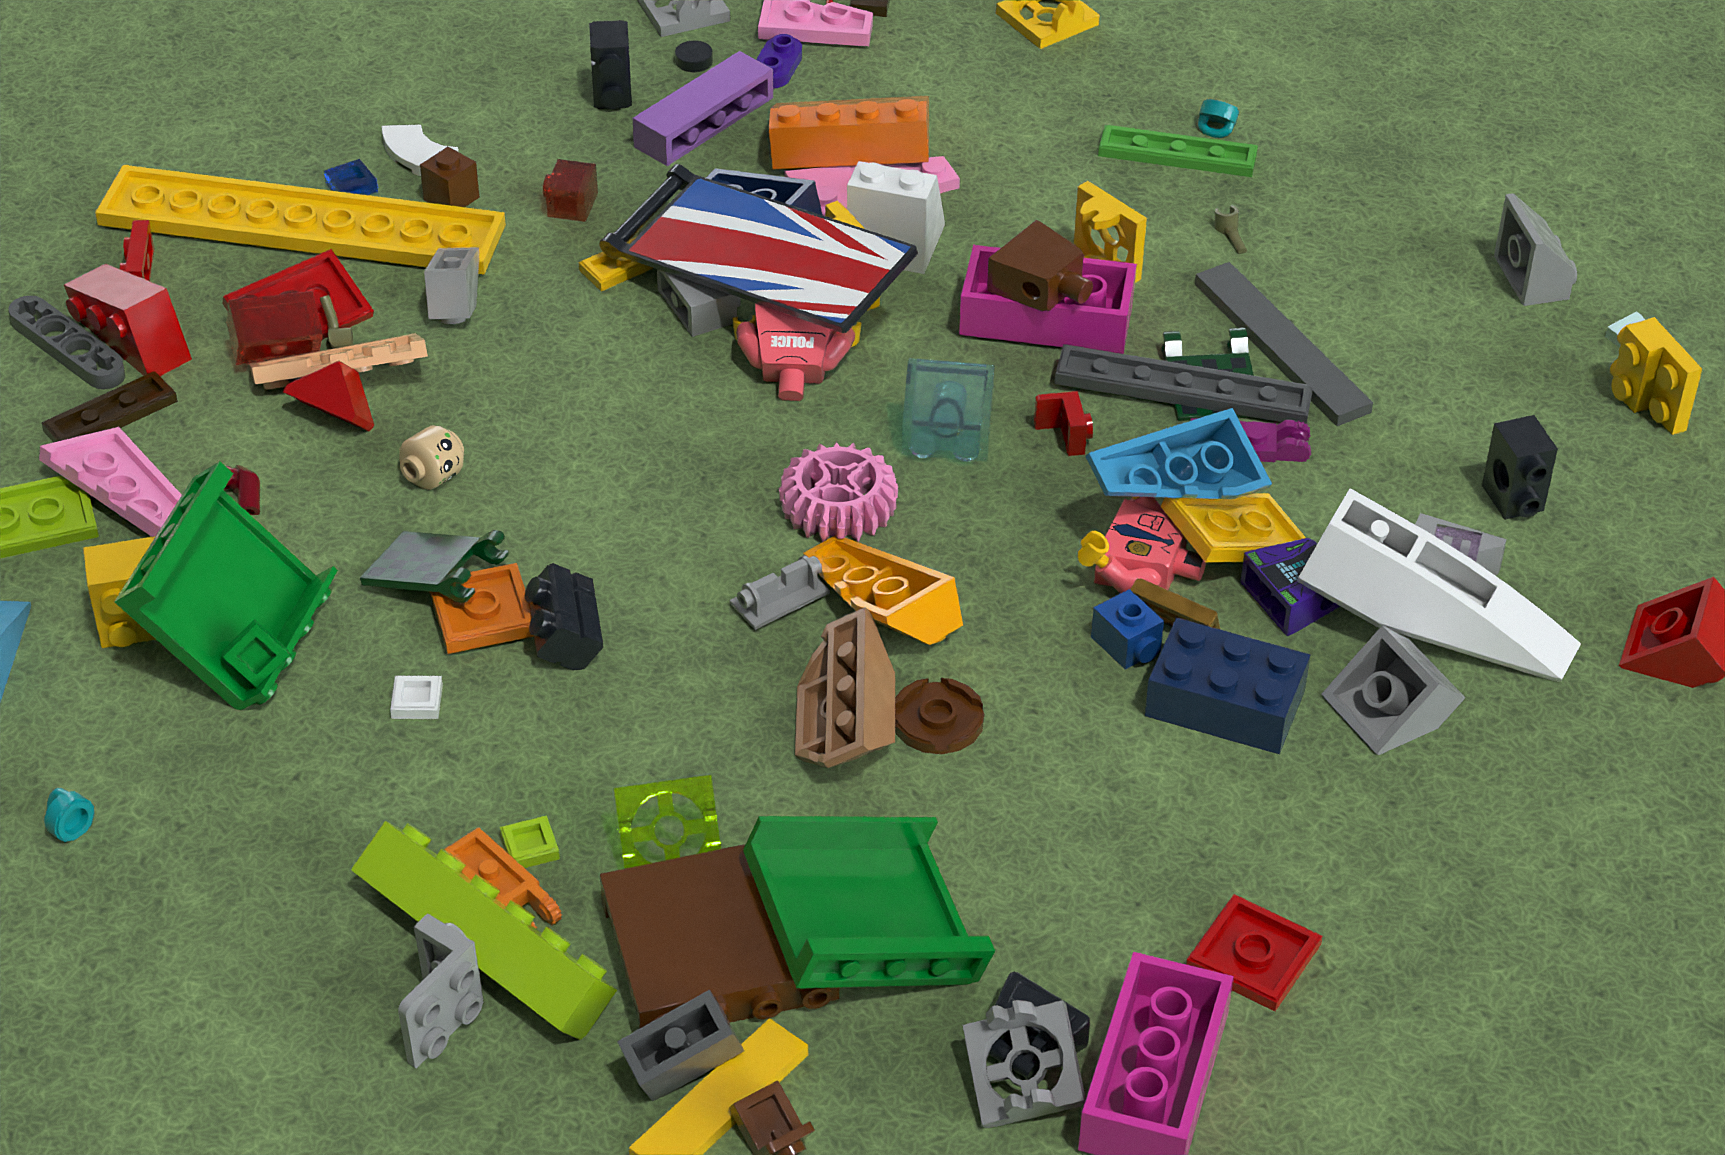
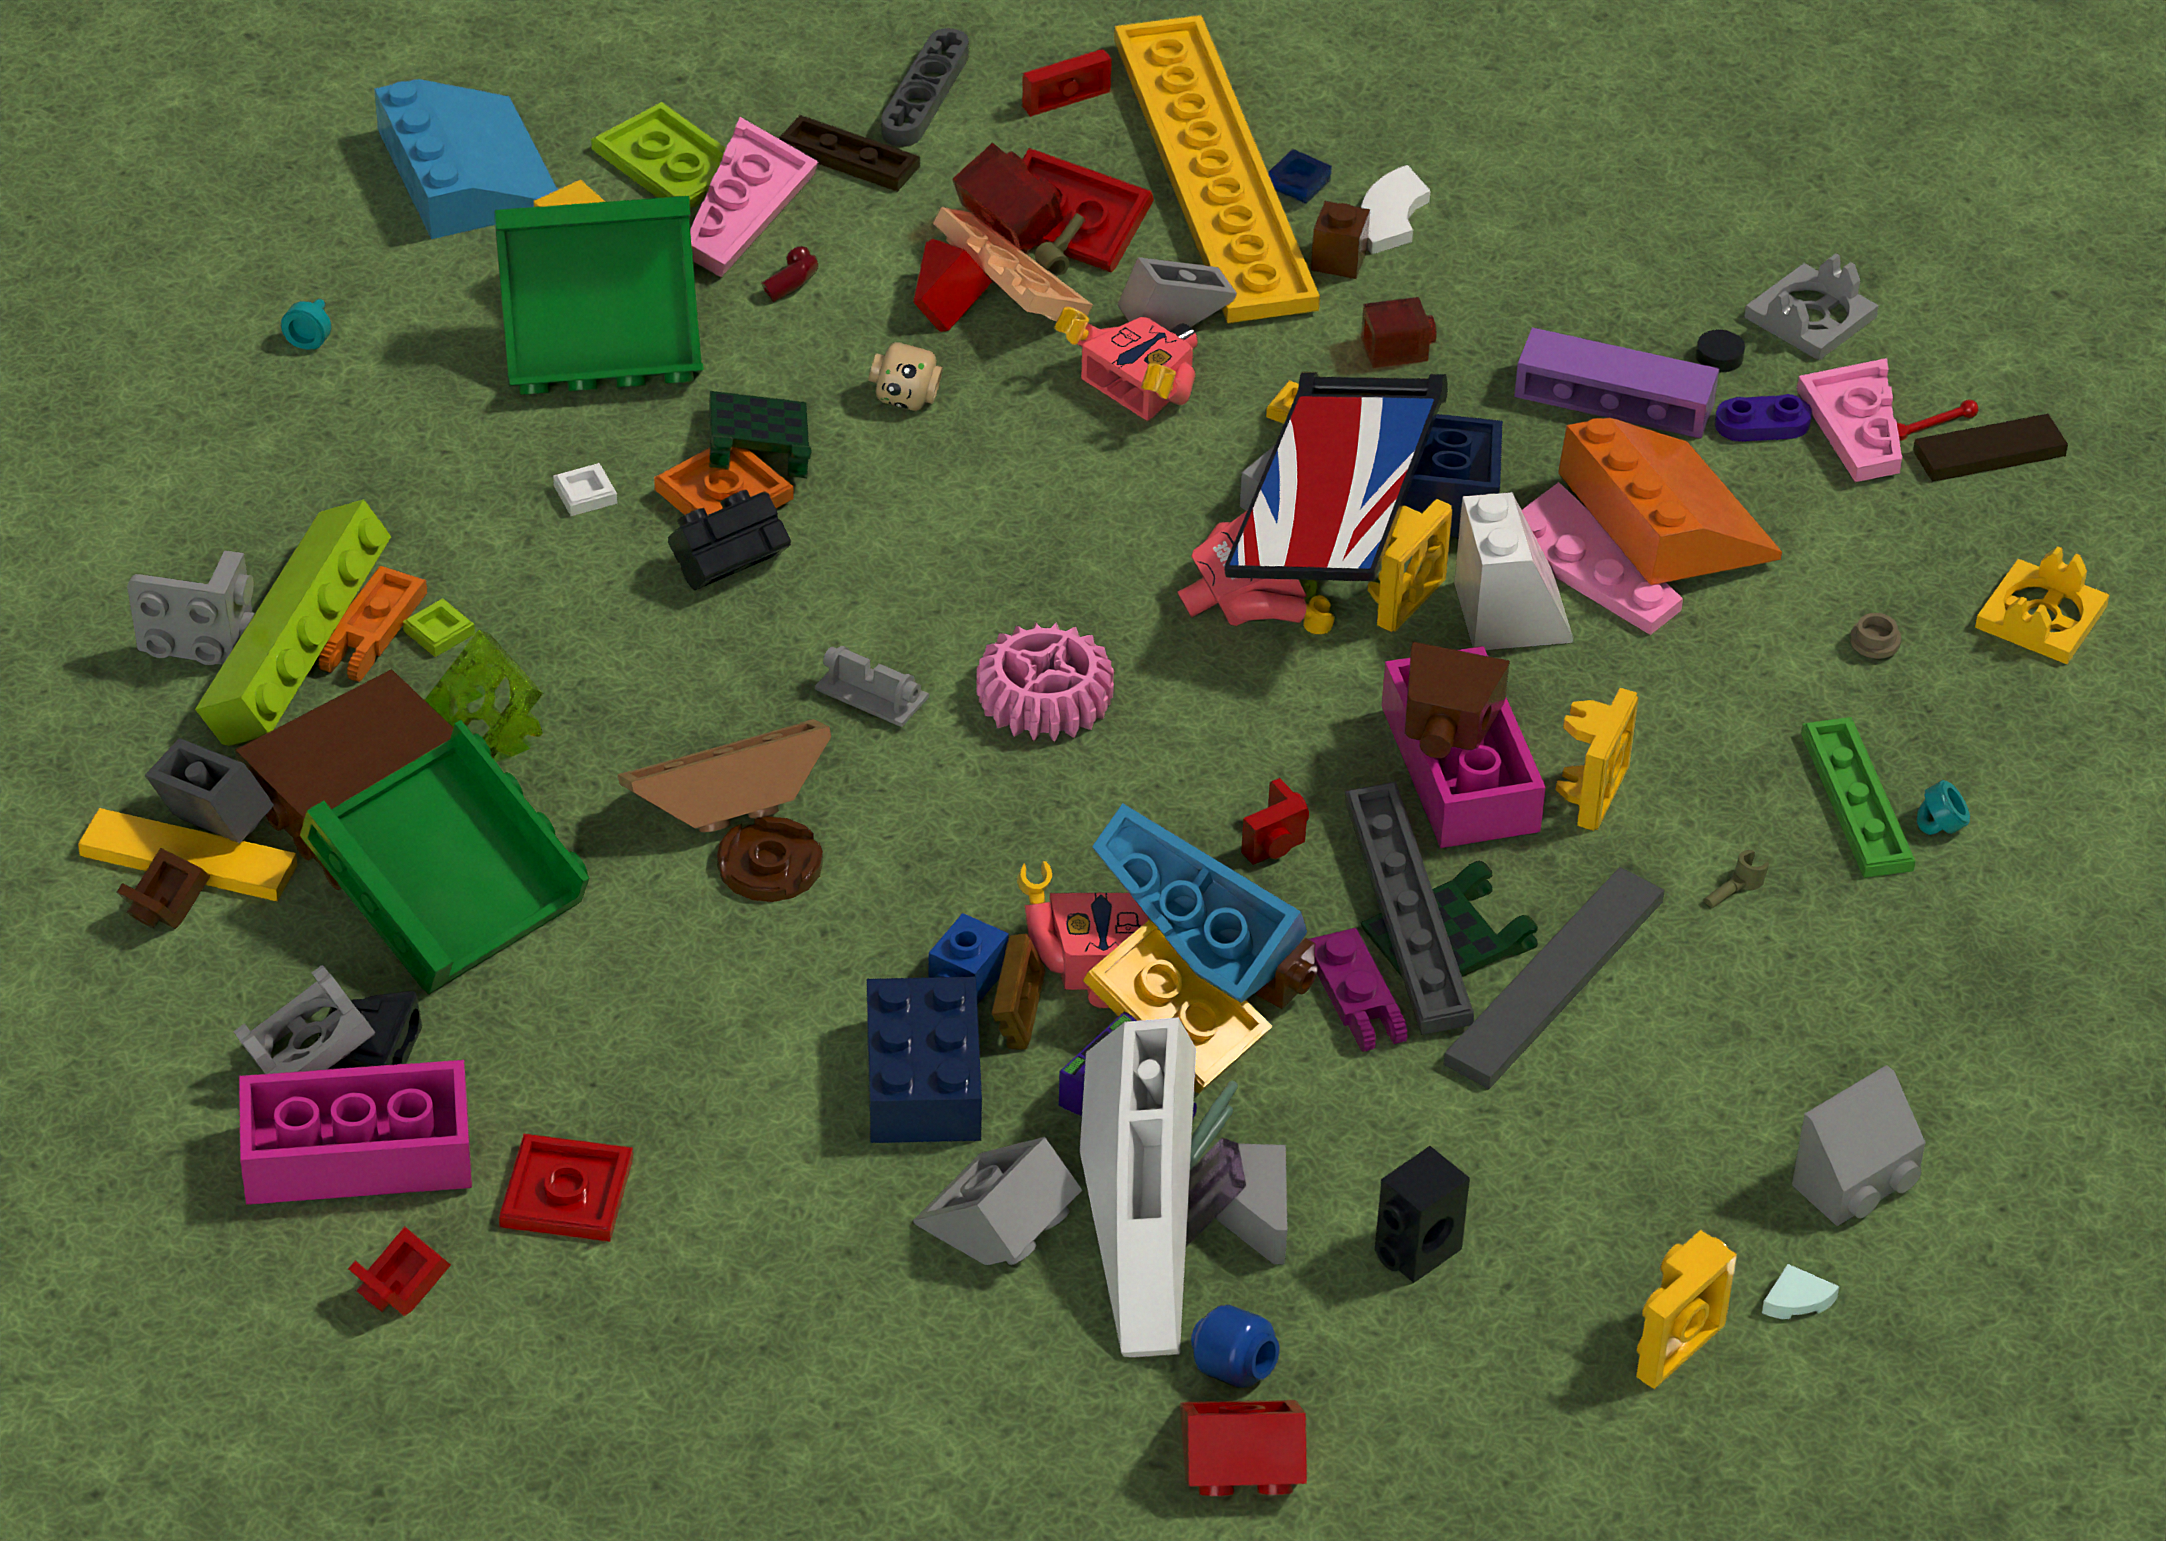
camera: 65 degrees right, 0 degrees up
(130, 318) = (964, 103): red wedge -> none
(255, 653) = (546, 350): green tile -> none
(516, 326) = (1135, 362): none -> coral torso
(610, 64) = (1611, 280): black brick -> none
(894, 590) = (902, 760): light orange wedge -> none
(948, 409) = (1205, 719): clear light blue slope -> none
(1032, 87) = (1876, 636): none -> dark tan plate
(1322, 1084) = (400, 1273): none -> red bracket
(1592, 610) = (1235, 1346): none -> blue head

